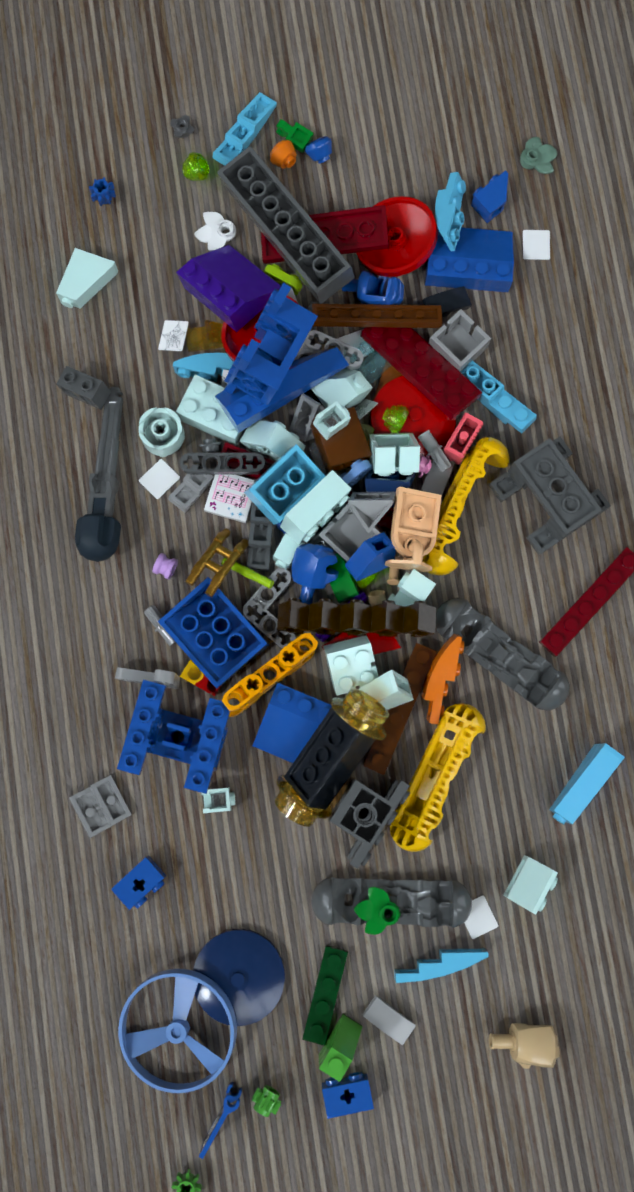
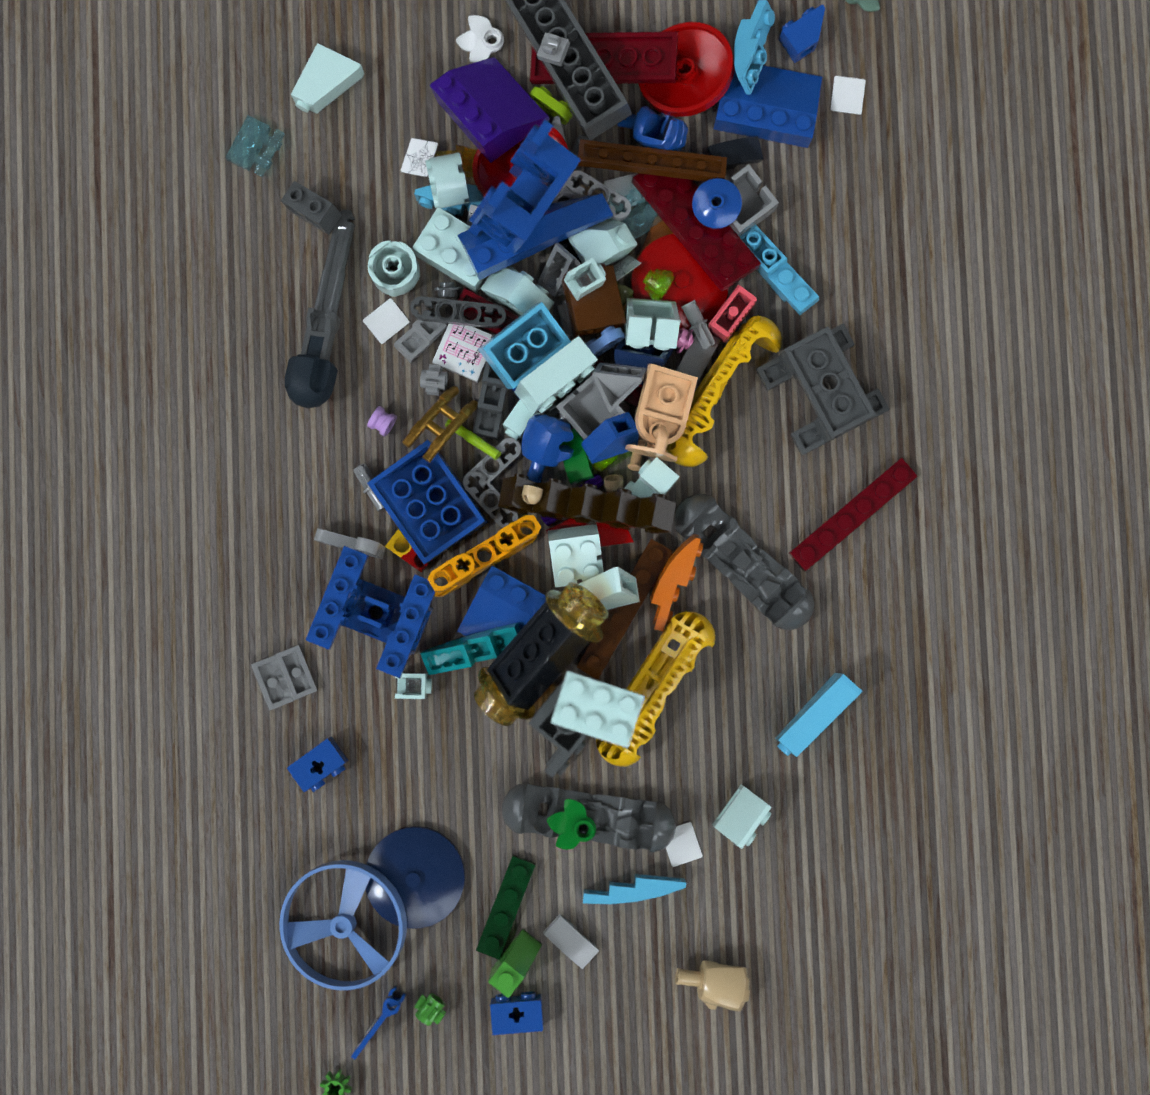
camera: 10 degrees right, 5 degrees up
(23, 339) = (249, 142): none -> clear light blue plate
(201, 350) = (447, 180): none -> light aqua brick
(207, 524) = (433, 379): none -> light grey gear
(265, 761) = (468, 649): none -> teal slope
(280, 229) = (553, 49): none -> light grey tile
(306, 614) = (531, 494): none -> tan hinge
(392, 800) = (597, 709): none -> light aqua brick
(442, 354) = (717, 216): none -> blue dish

